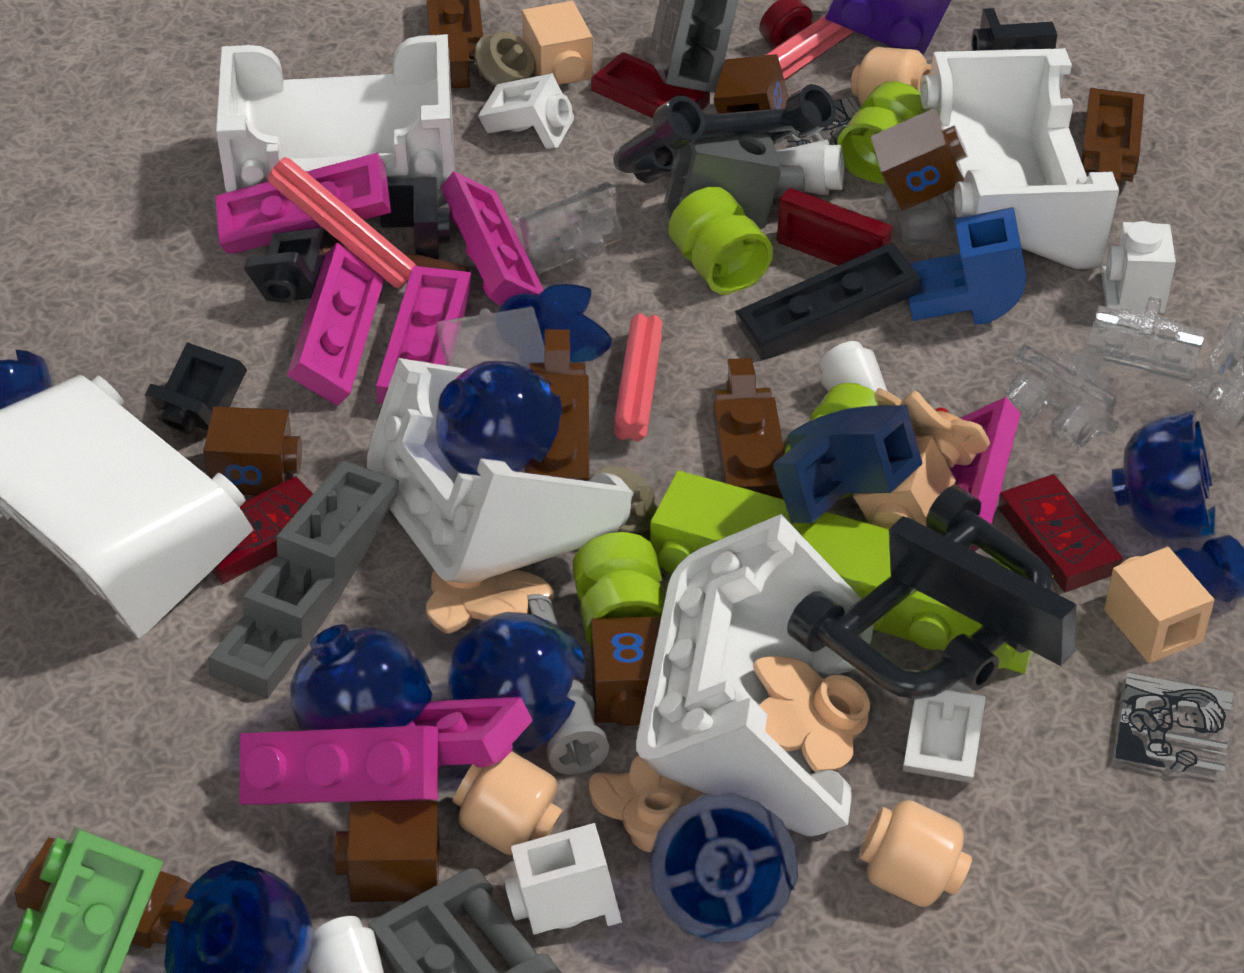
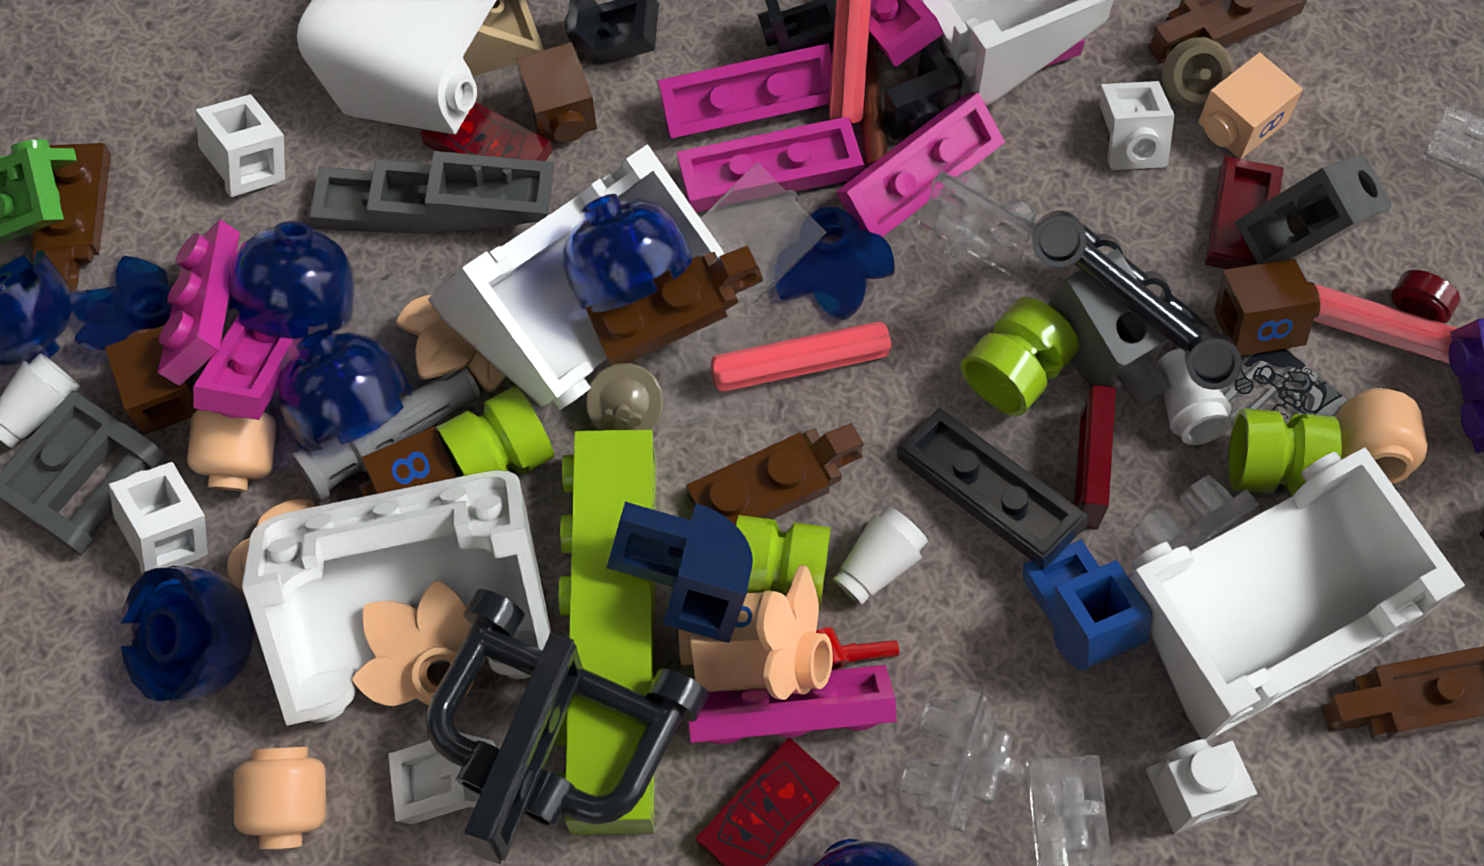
camera: 70 degrees right, 20 degrees up
(138, 708) = (241, 144): none -> white brick
(293, 848) = (119, 310): none -> clear blue plate
(920, 158) = (1200, 493): reddish brown brick -> none

